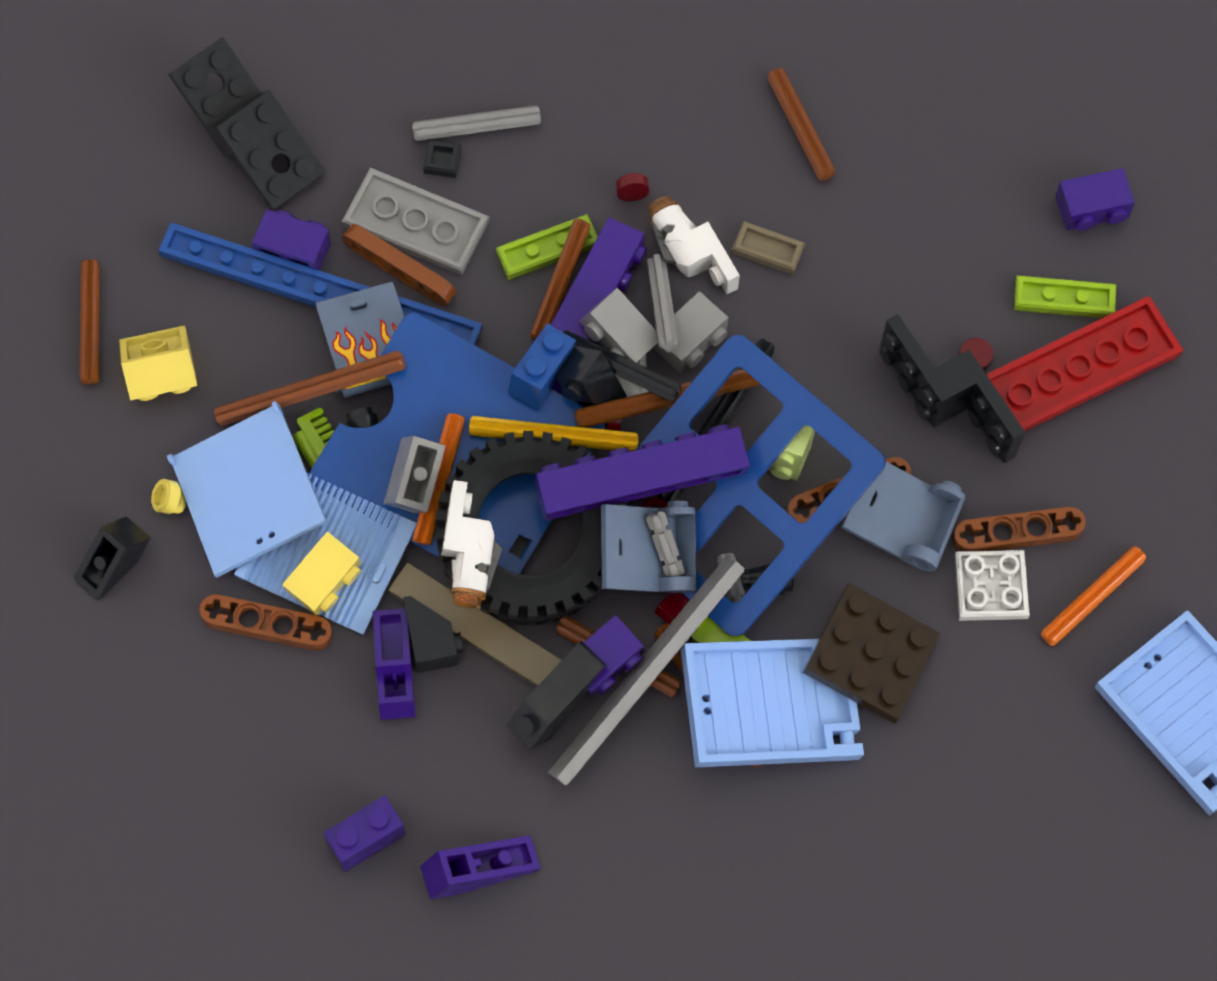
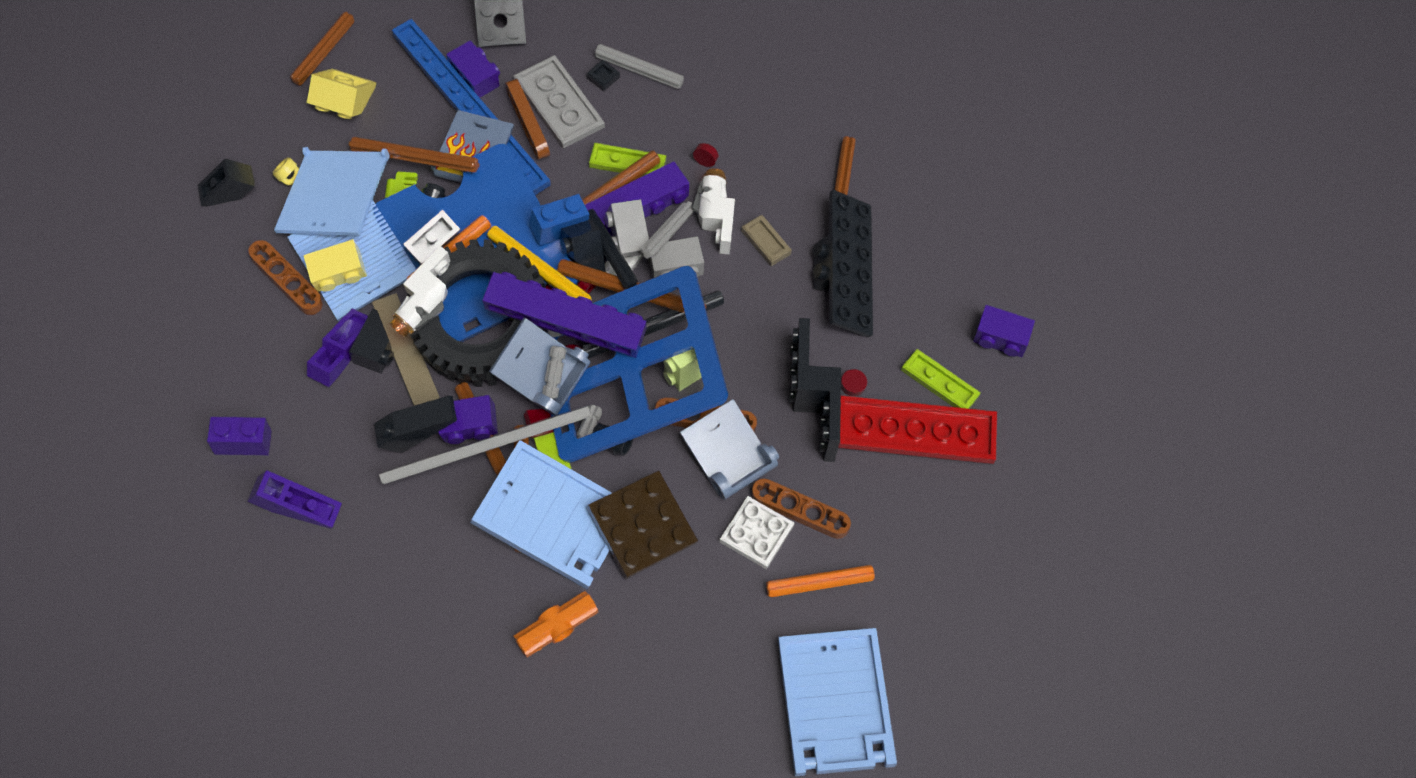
camera: 30 degrees right, 5 degrees down
(859, 817) = (556, 624): none -> orange piece
(874, 225) = (845, 264): none -> black bracket

